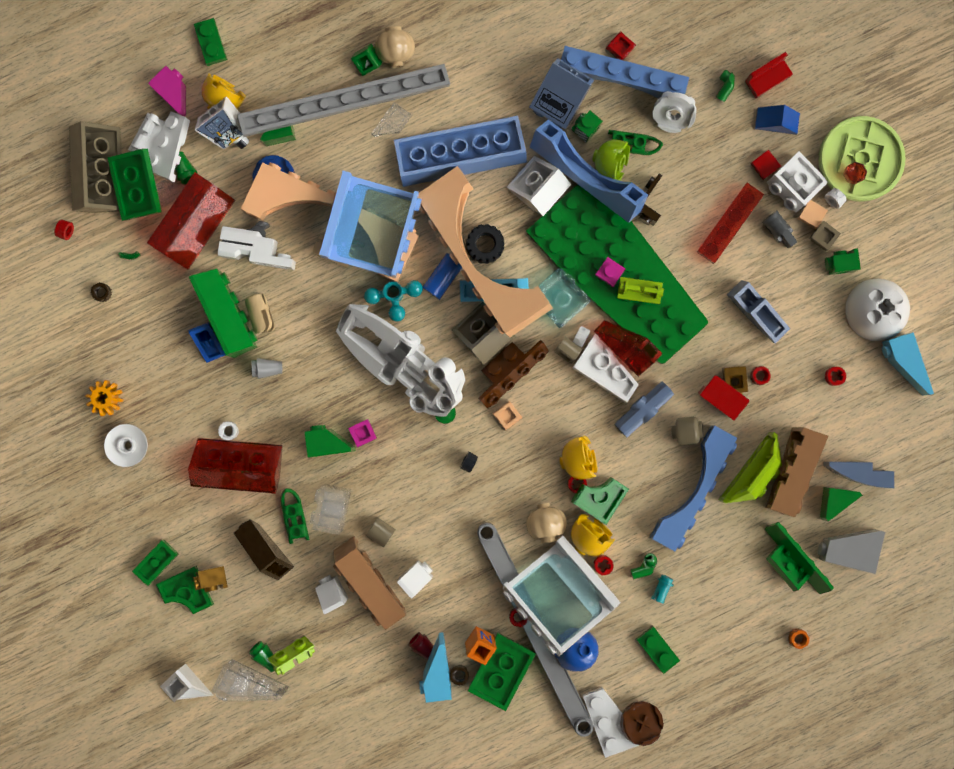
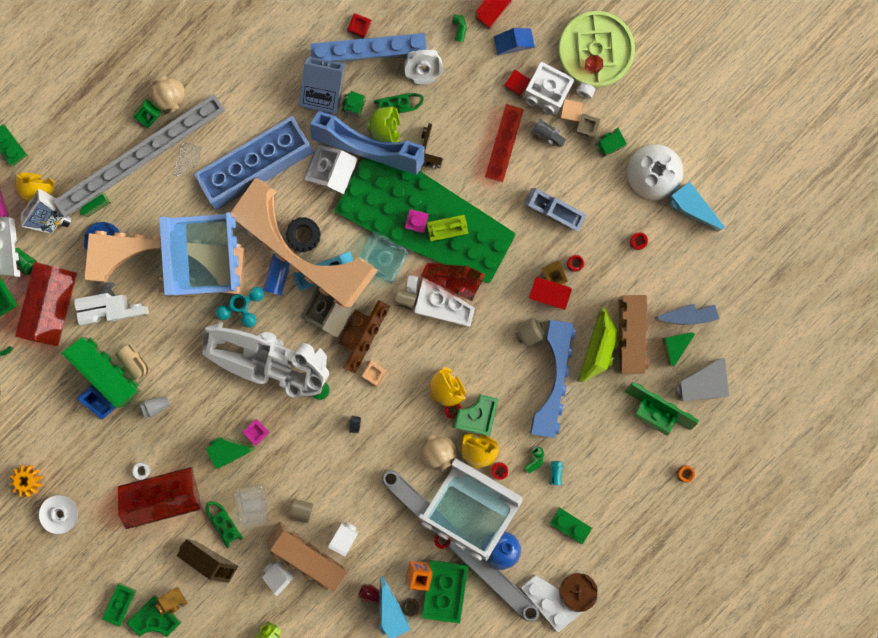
camera: 20 degrees left, 0 degrees up
(644, 409) = (487, 326): sand blue piece -> none

